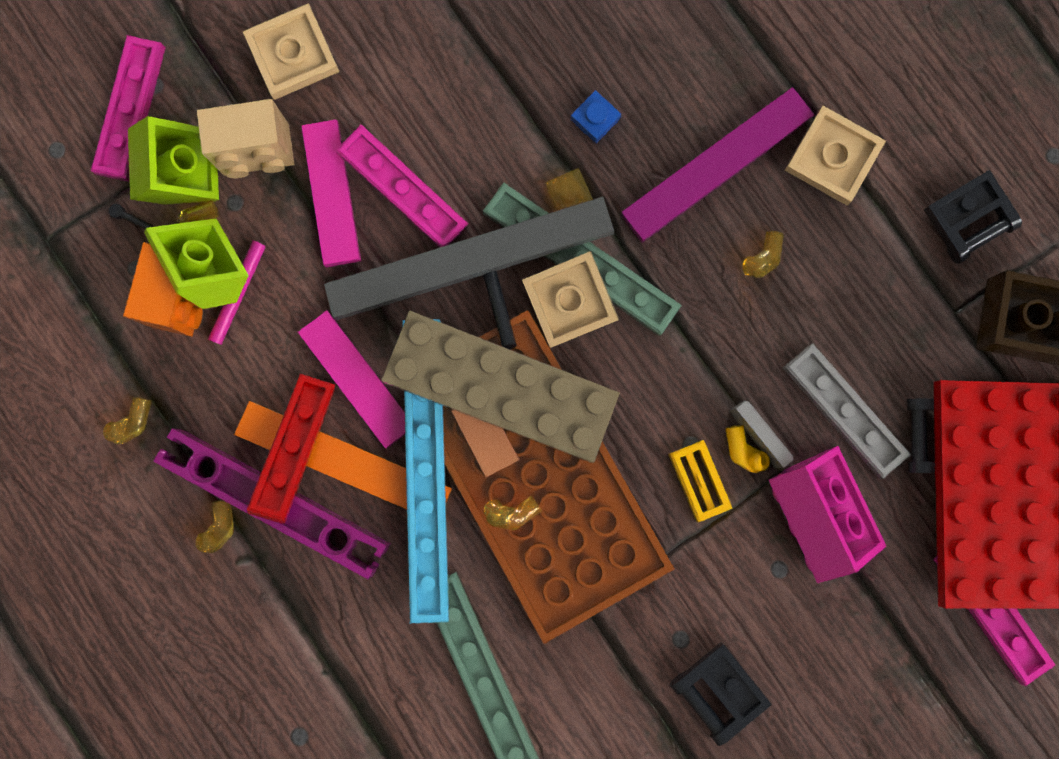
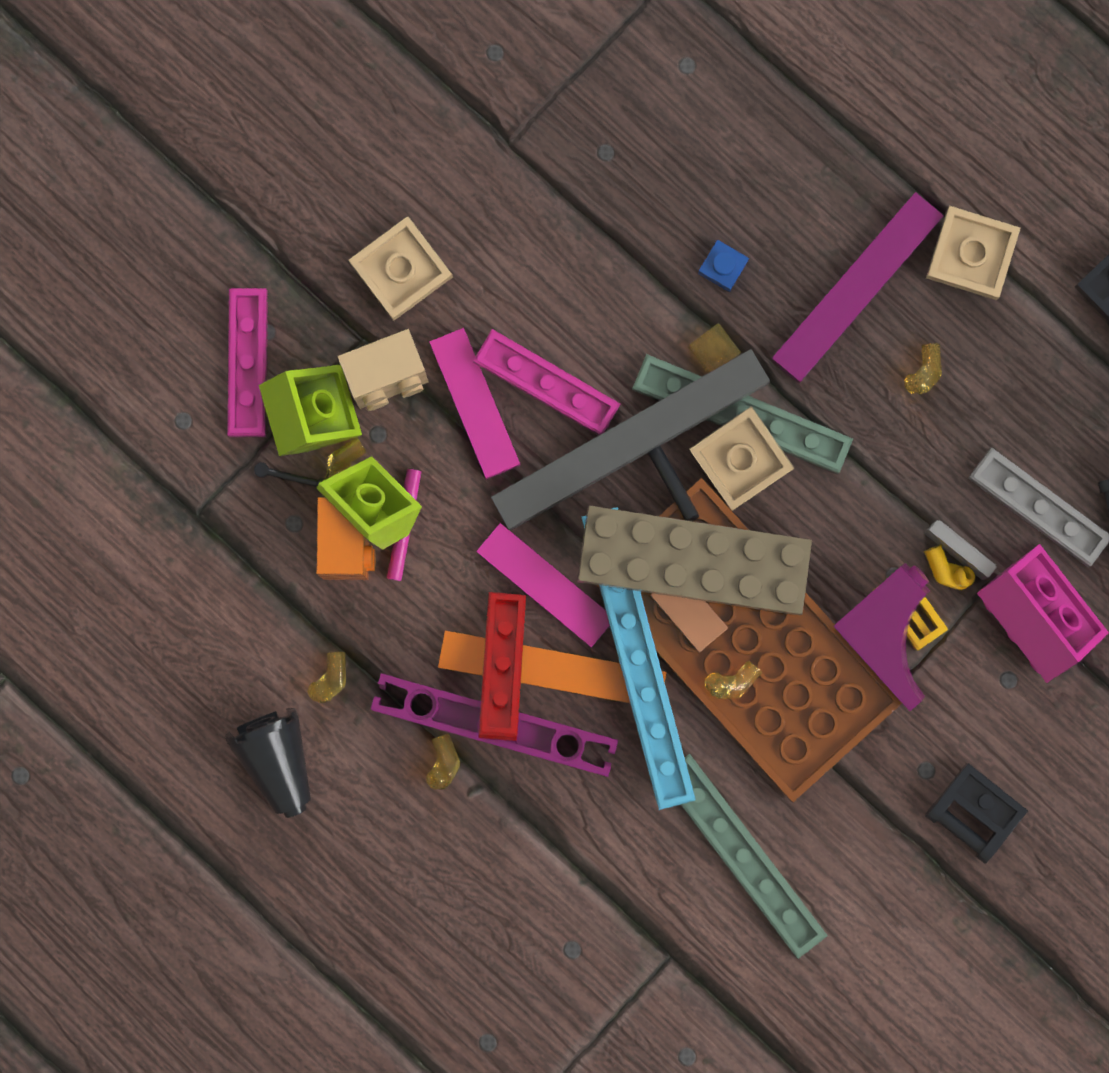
camera: 10 degrees left, 0 degrees up
(51, 489) = (275, 760): none -> black cone
(666, 494) = (880, 628): none -> magenta arch

